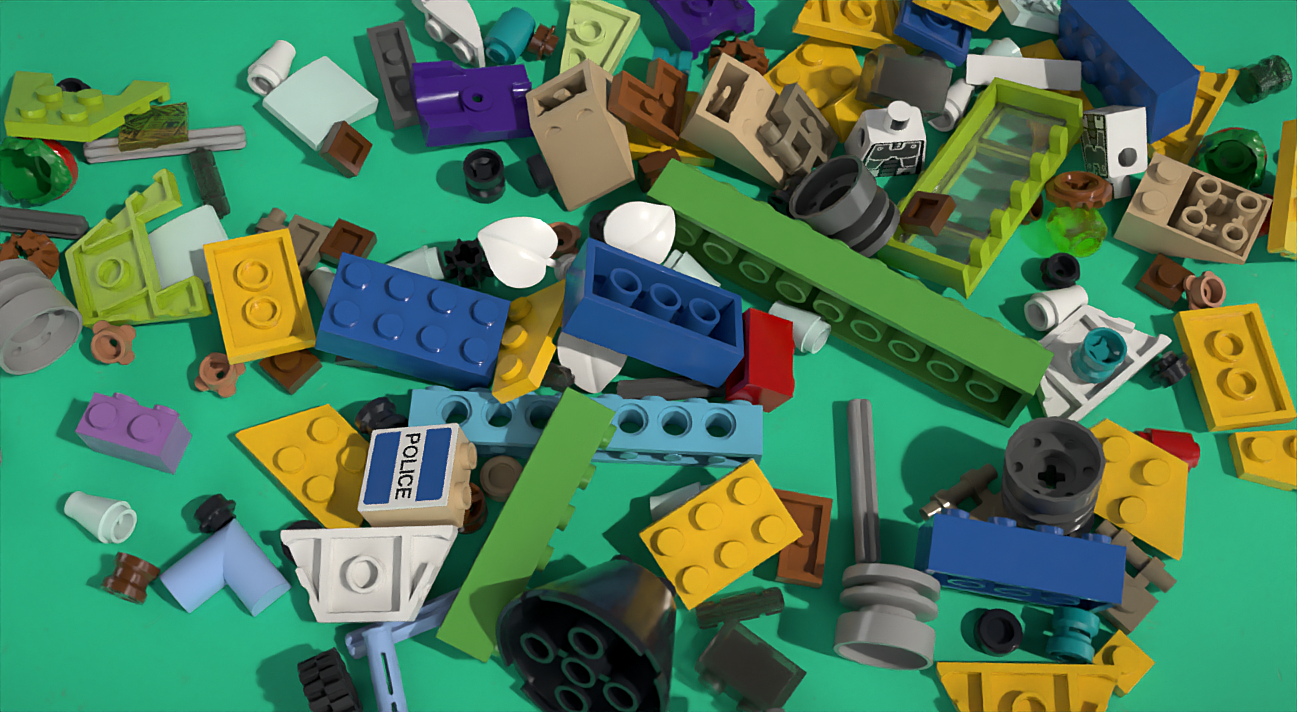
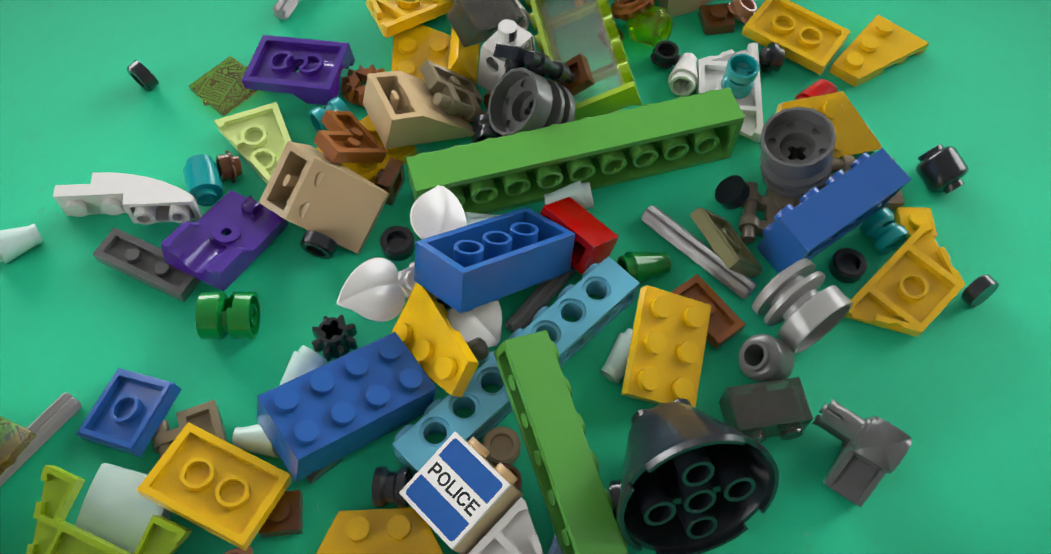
camera: 45 degrees left, 5 degrees down
(209, 181) = (79, 450): clear smoke axle -> none
(267, 182) = (129, 412): none -> blue plate
(271, 68) = (47, 339): white cone -> none
(318, 98) = (109, 329): light aqua slope -> none
(345, 149) = (164, 341): reddish brown plate -> none
(349, 239) = (235, 400): reddish brown plate -> none
(407, 168) = (220, 315): none -> green wheel
(484, 176) = (283, 276): black wheel -> none
(740, 607) = (717, 382): clear smoke axle -> none
(793, 446) = (645, 264): none -> green cone
(800, 630) = (766, 358): none -> dark grey head
(888, 497) = (726, 243): none -> olive plate
(889, 169) = (533, 61): none -> black plate
(961, 459) = (732, 192): none -> black tile
(1216, 639) = (942, 169): none -> black head

